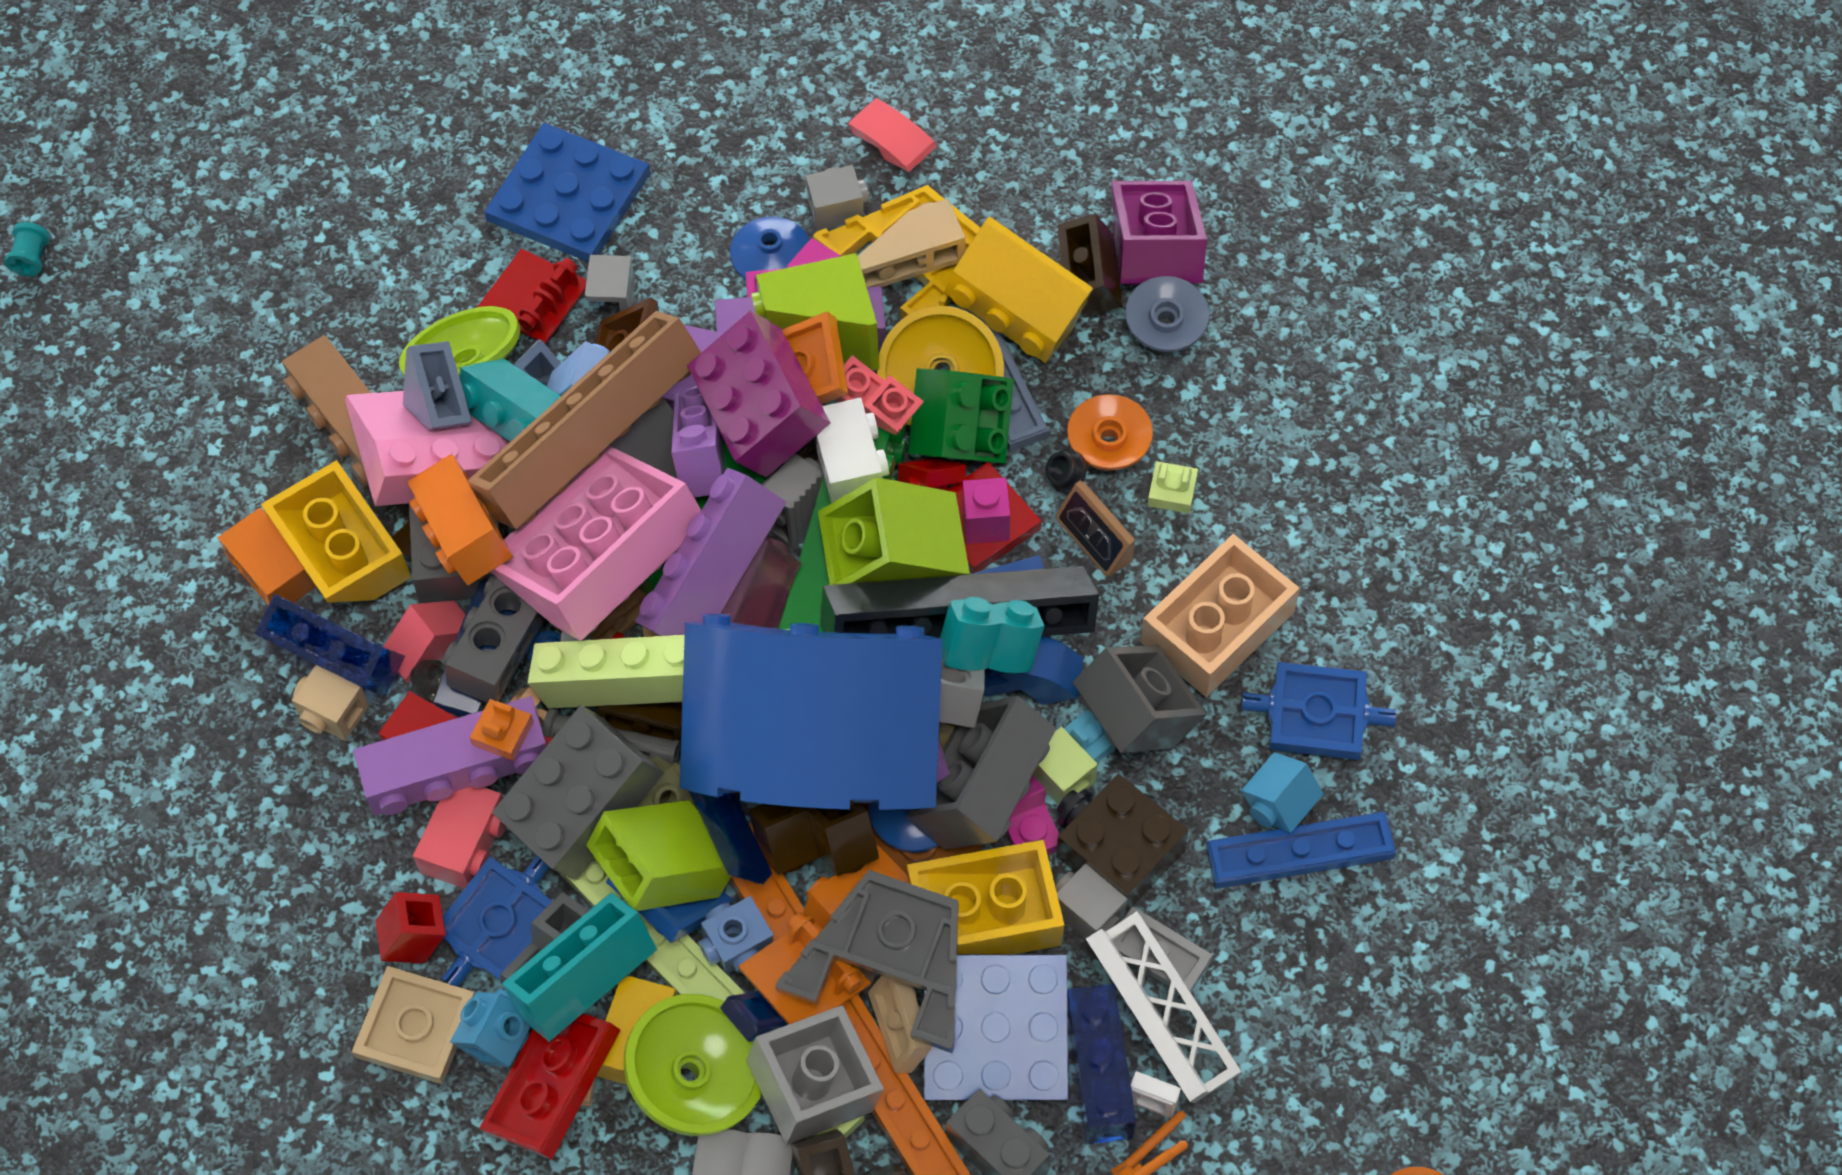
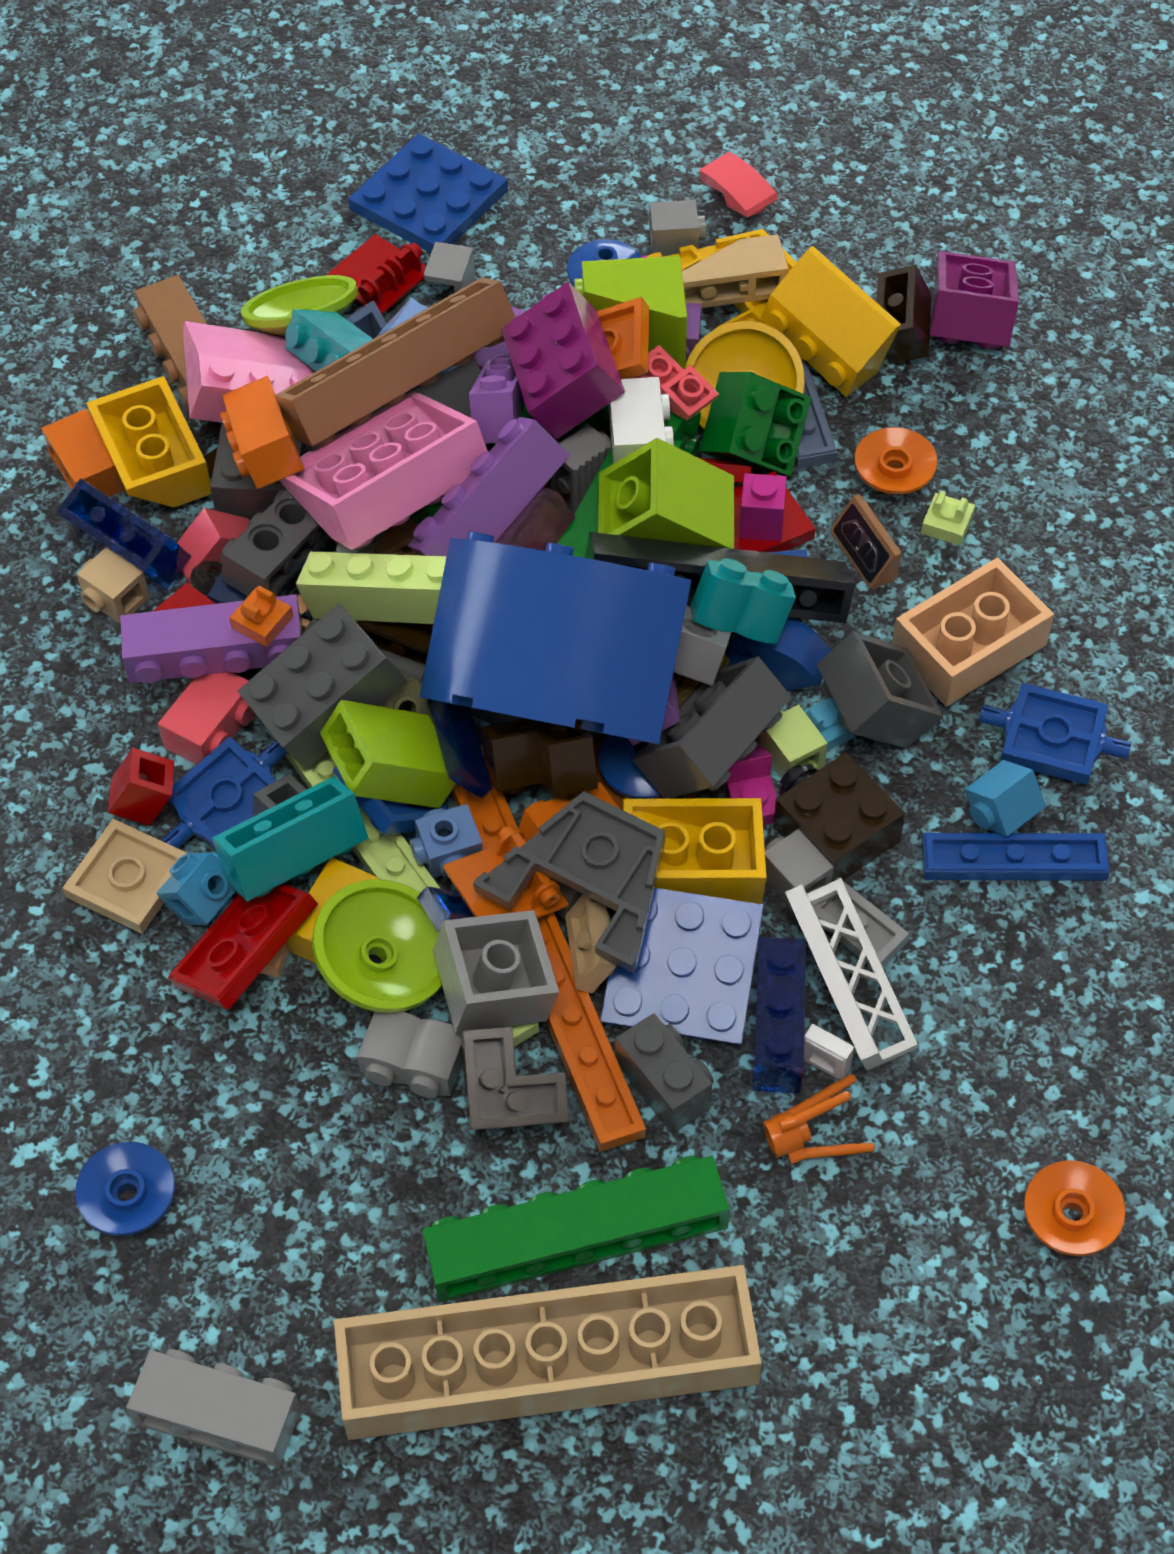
camera: 10 degrees right, 5 degrees down
(434, 387) = (265, 320): sand blue slope -> none
(1065, 469) = (846, 484): black plate -> none
(1170, 299) = (972, 356): sand blue dish -> none

